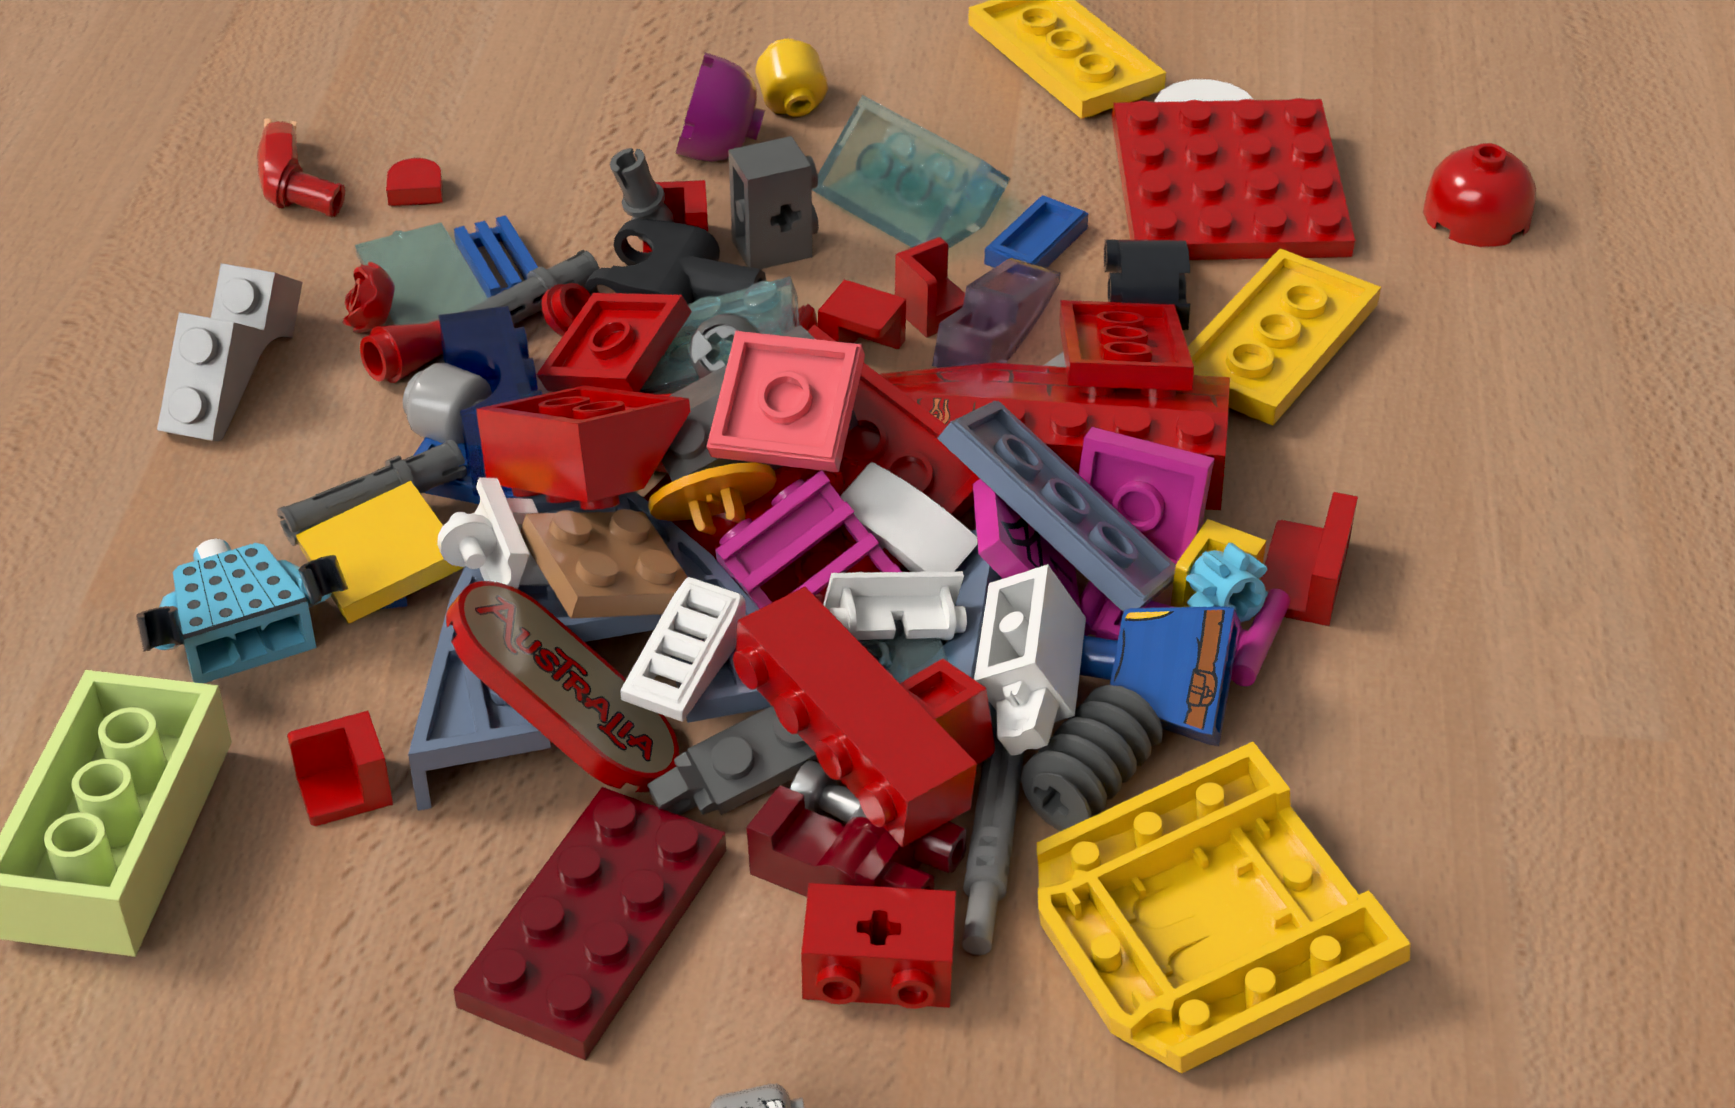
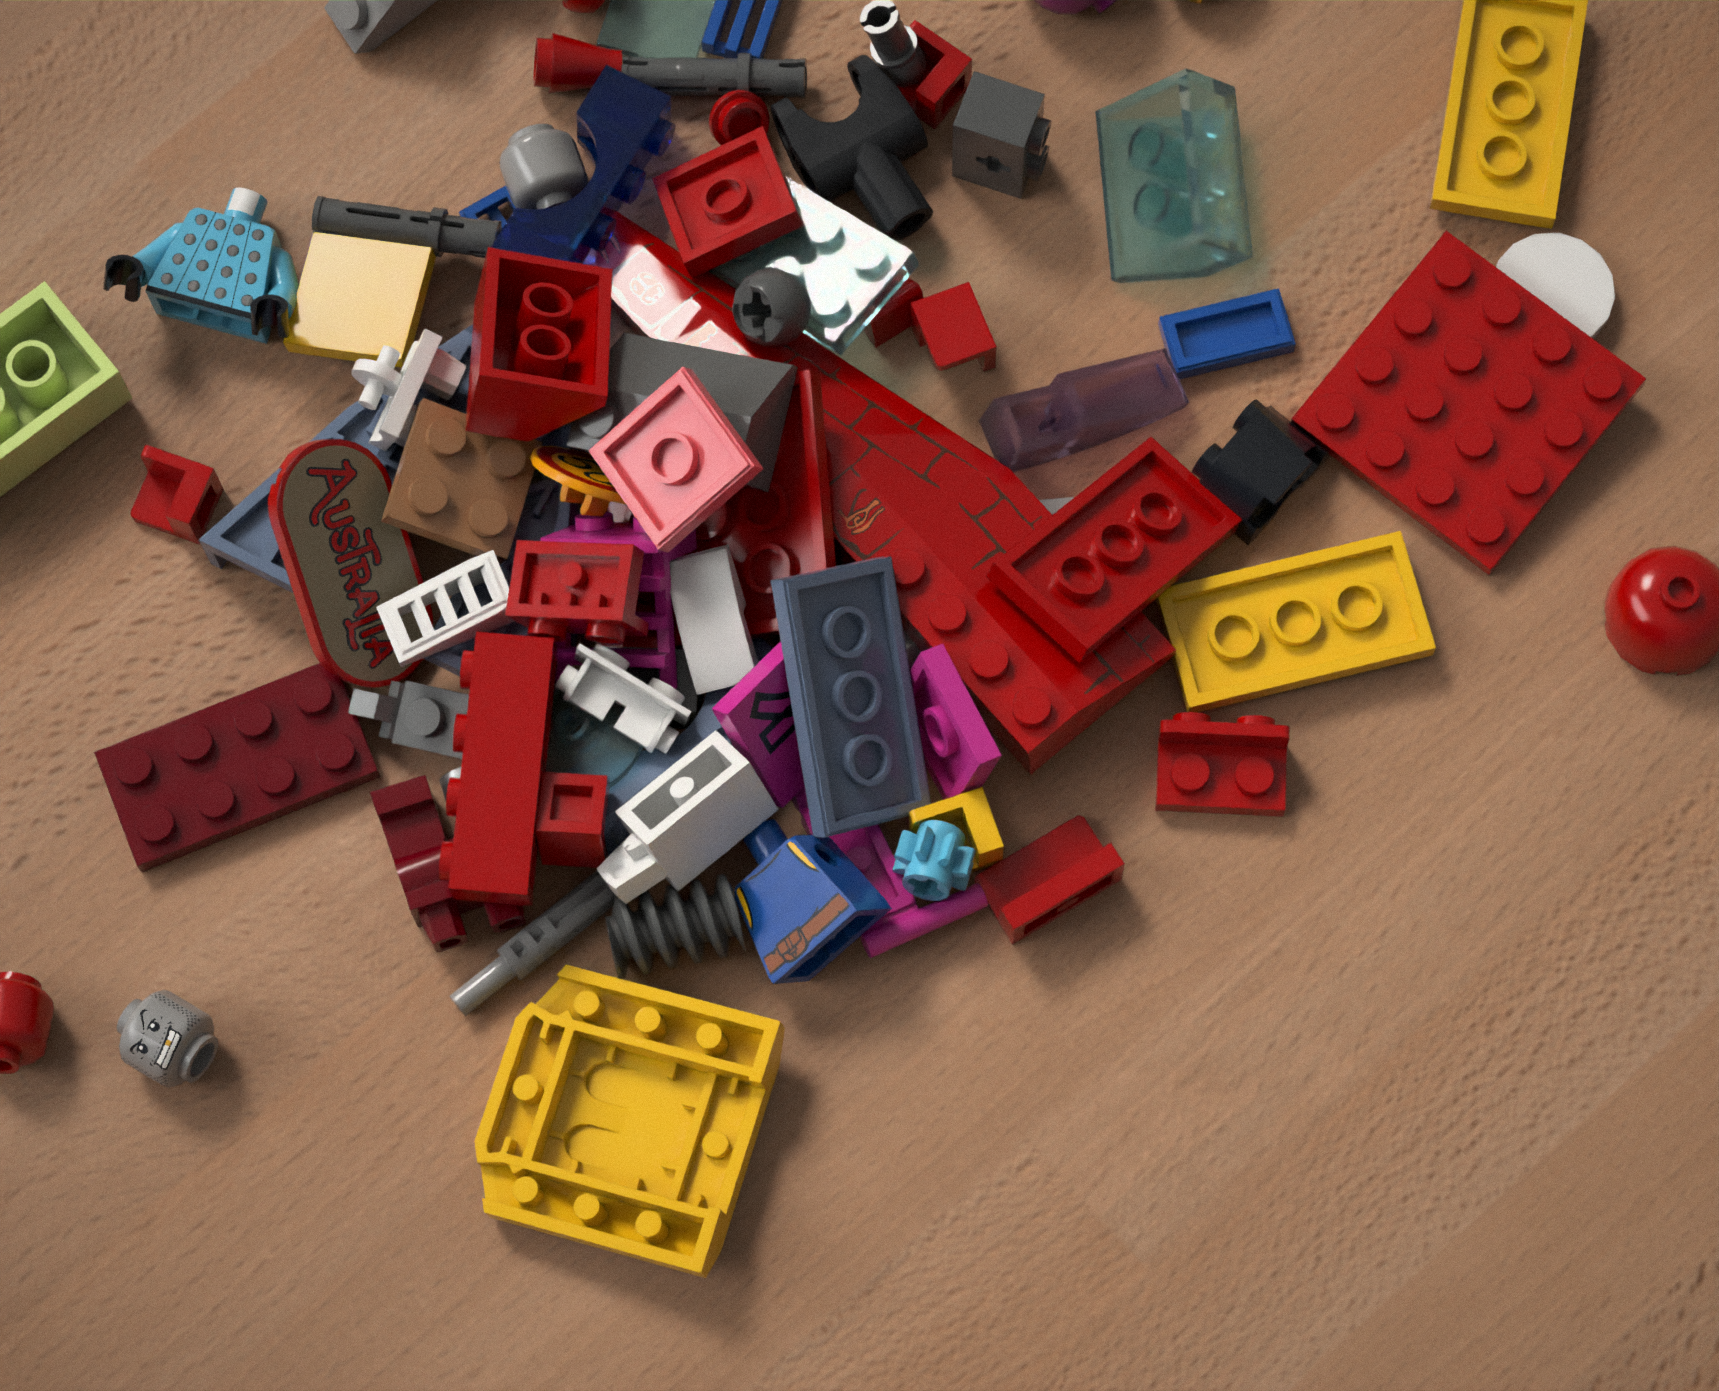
camera: 45 degrees right, 30 degrees up
(790, 544) = (577, 590): none -> red bracket
(878, 945) = (370, 922): red brick -> none
(925, 284) = (1054, 335): red panel -> none
(1331, 431) = (1221, 765): none -> red bracket

